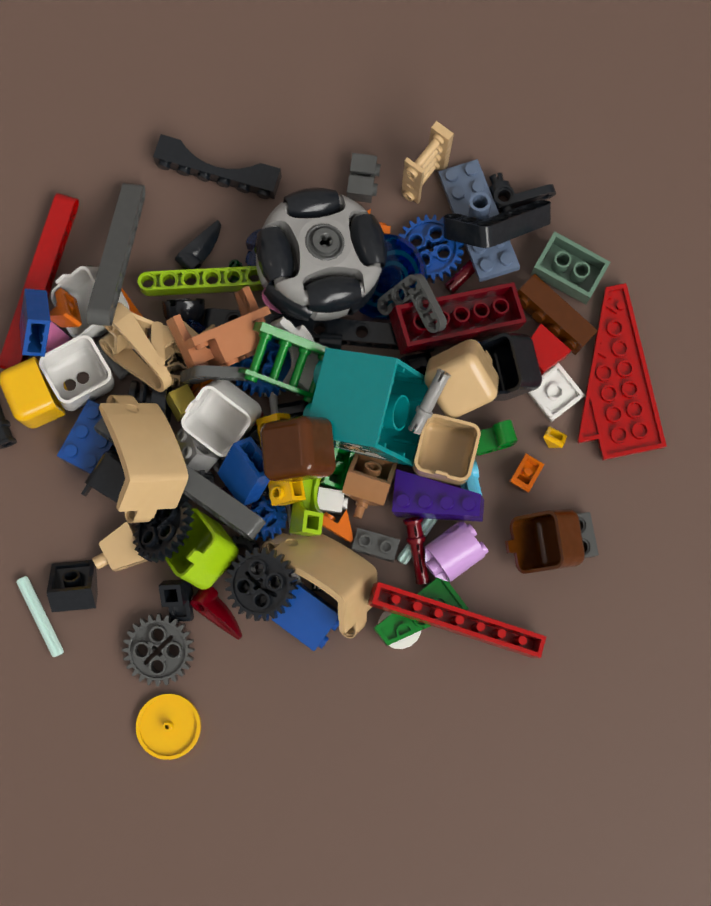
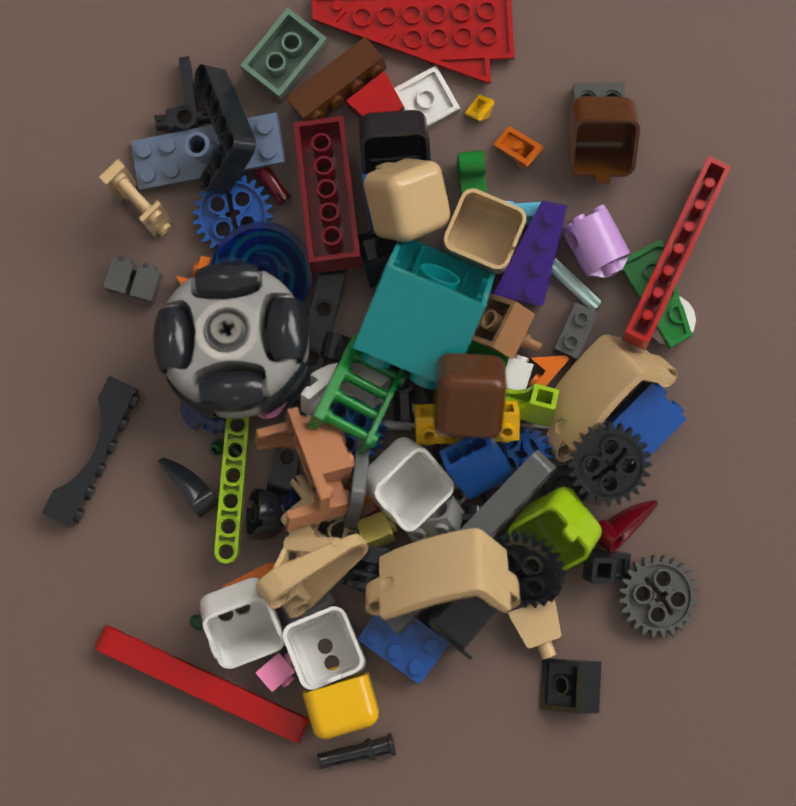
camera: 80 degrees left, 5 degrees up
(34, 322) = (262, 688): blue brick -> none
(40, 616) = (599, 729): light aqua axle -> none
(67, 311) = (252, 649): orange slope -> none
(116, 255) = (193, 580): dark grey beam -> none
(168, 726) = (744, 596): yellow piece -> none
(416, 296) = (300, 235): dark grey beam -> none
(417, 538) = (577, 284): dark red pin -> none
(425, 409) = (441, 246): light grey pin -> none

